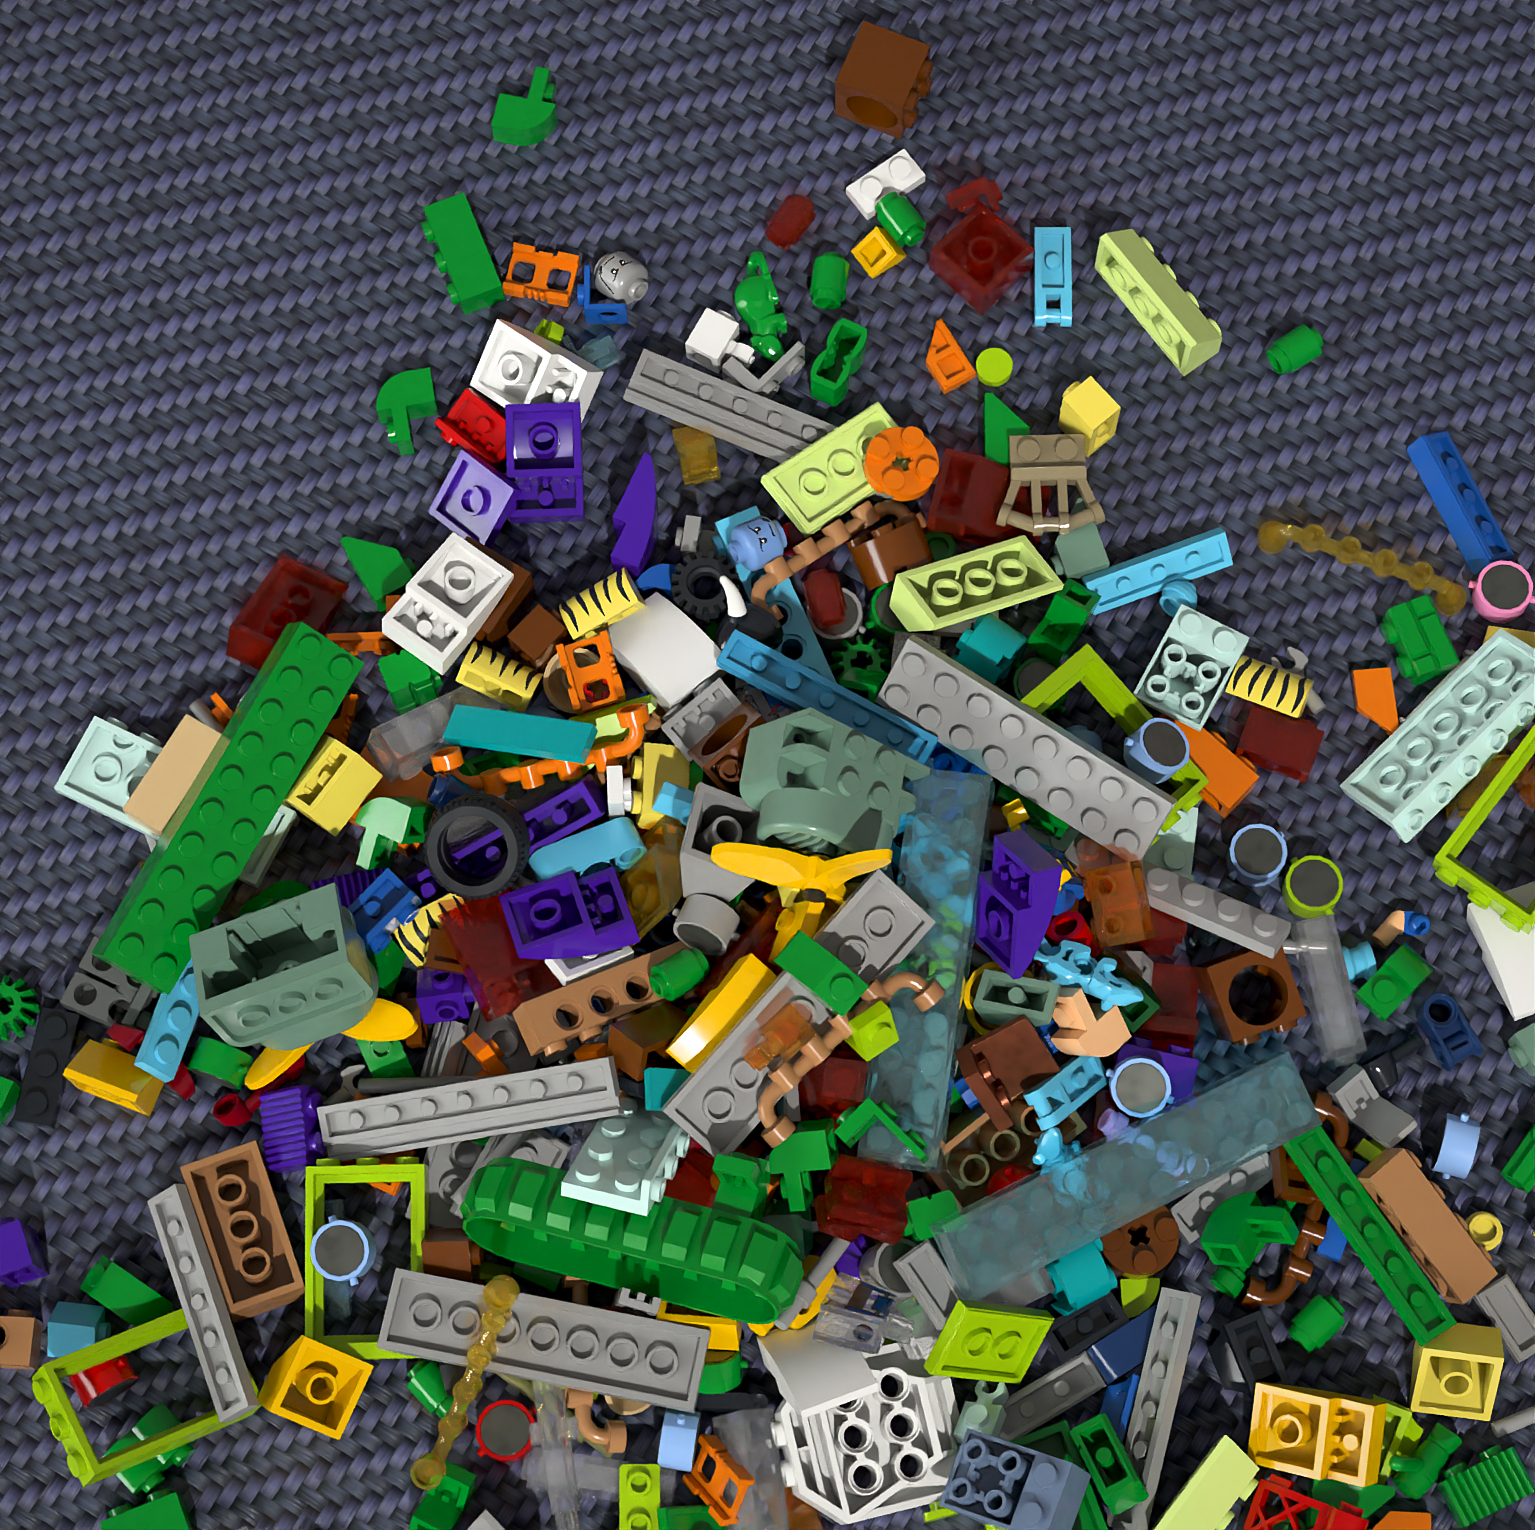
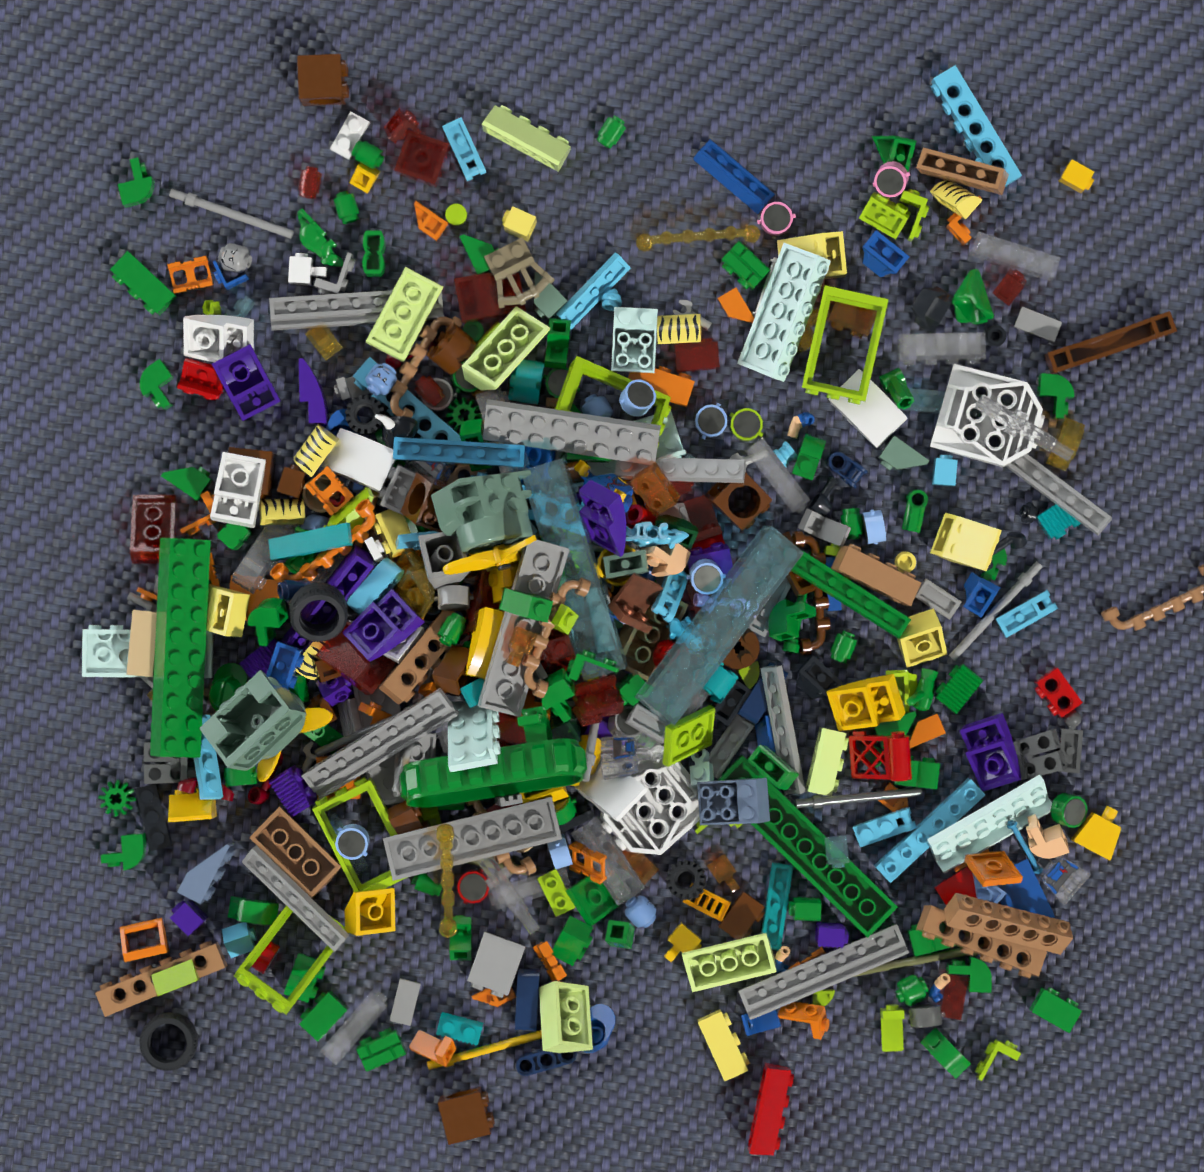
camera: 30 degrees left, 15 degrees up
(74, 1196) = (200, 880): none -> sand blue slope
(474, 499) = (220, 420): plate -> none
(600, 171) = (192, 199): none -> light grey bar
(910, 445) = (434, 310): orange plate -> none
(1429, 1119) = (853, 519): none -> green brick

